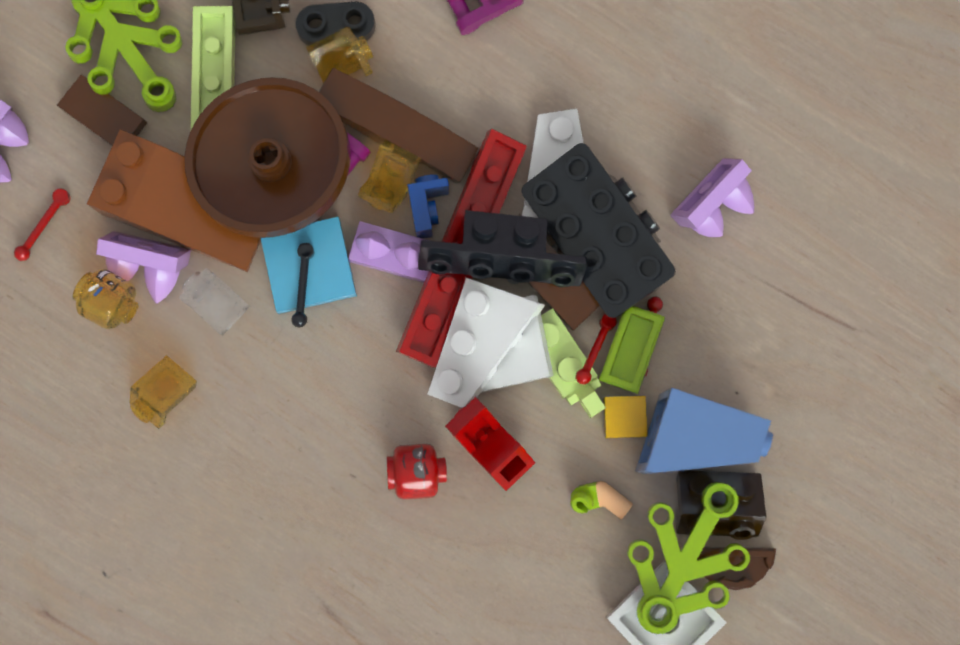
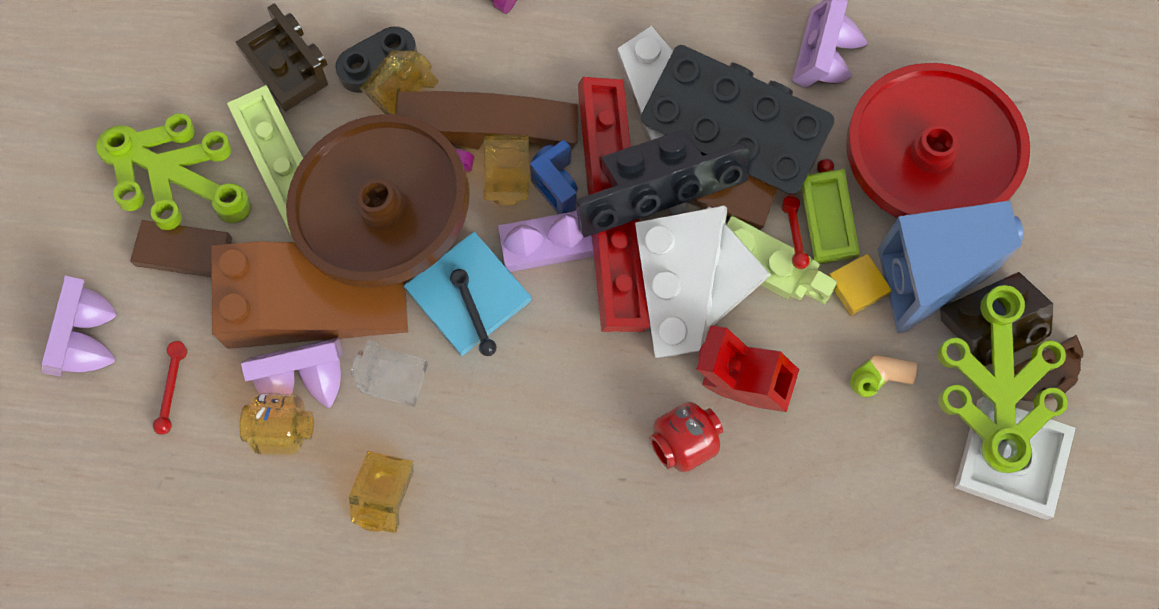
camera: 25 degrees left, 10 degrees down
(754, 334) = (936, 140): none -> red dish

